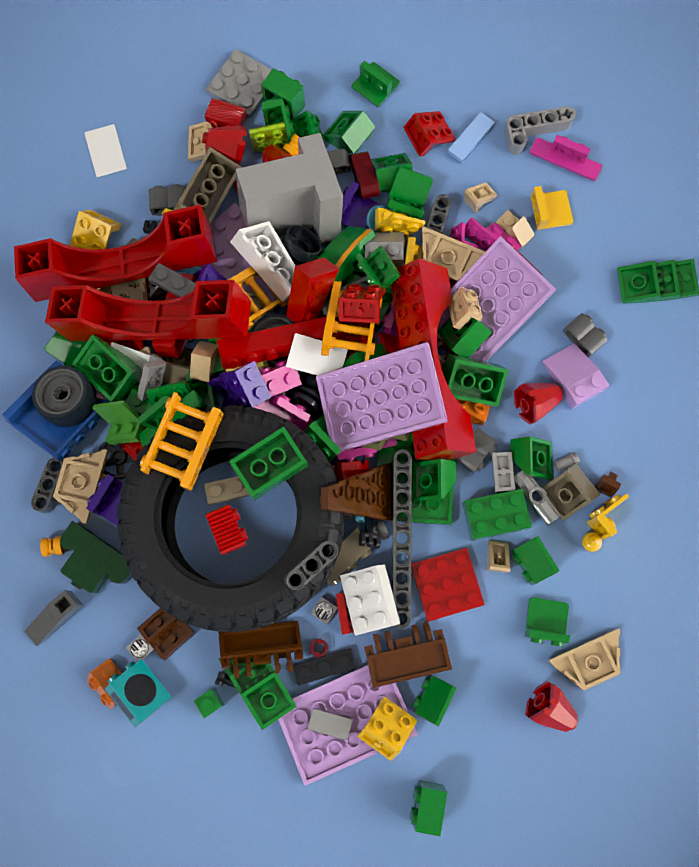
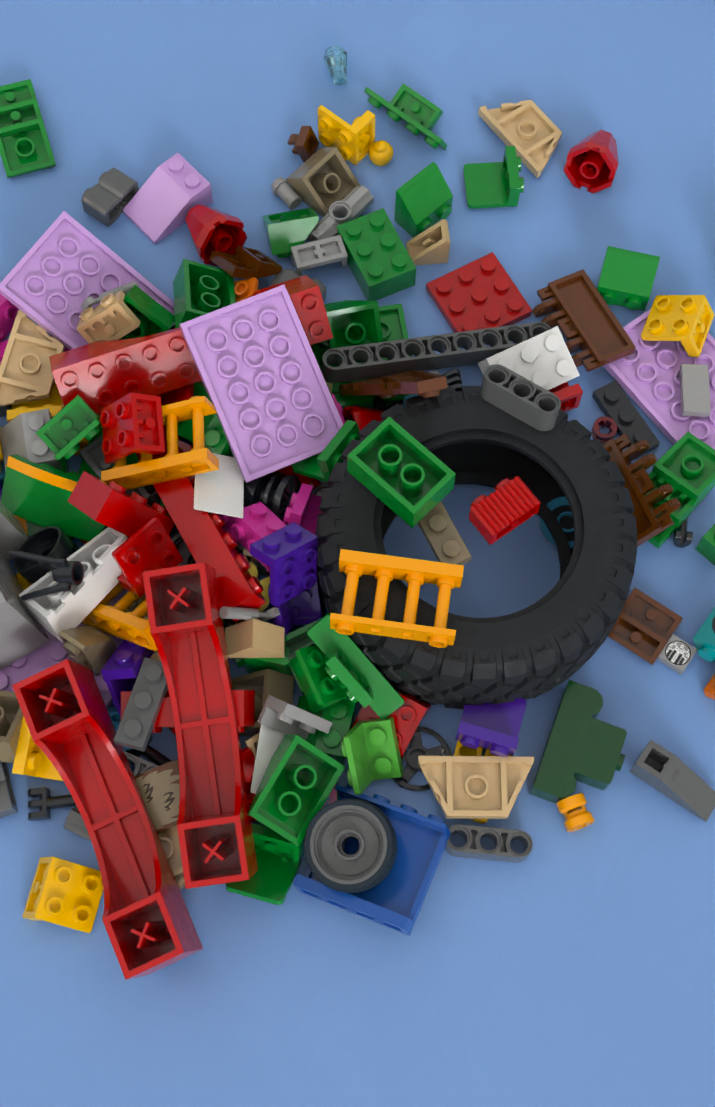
camera: 105 degrees left, 10 degrees down
(215, 354) = (248, 613): none -> light grey piece
(229, 258) = (88, 647): none -> dark tan slope
(267, 247) = (63, 572): none -> black plant
(270, 300) = (145, 551): none -> red bracket
(488, 316) = (125, 288): none -> light grey piece
(504, 417) = (245, 263): none -> reddish brown slope
(623, 575) = (414, 110): none -> green bracket
(681, 526) = (336, 62): none -> clear light blue cone

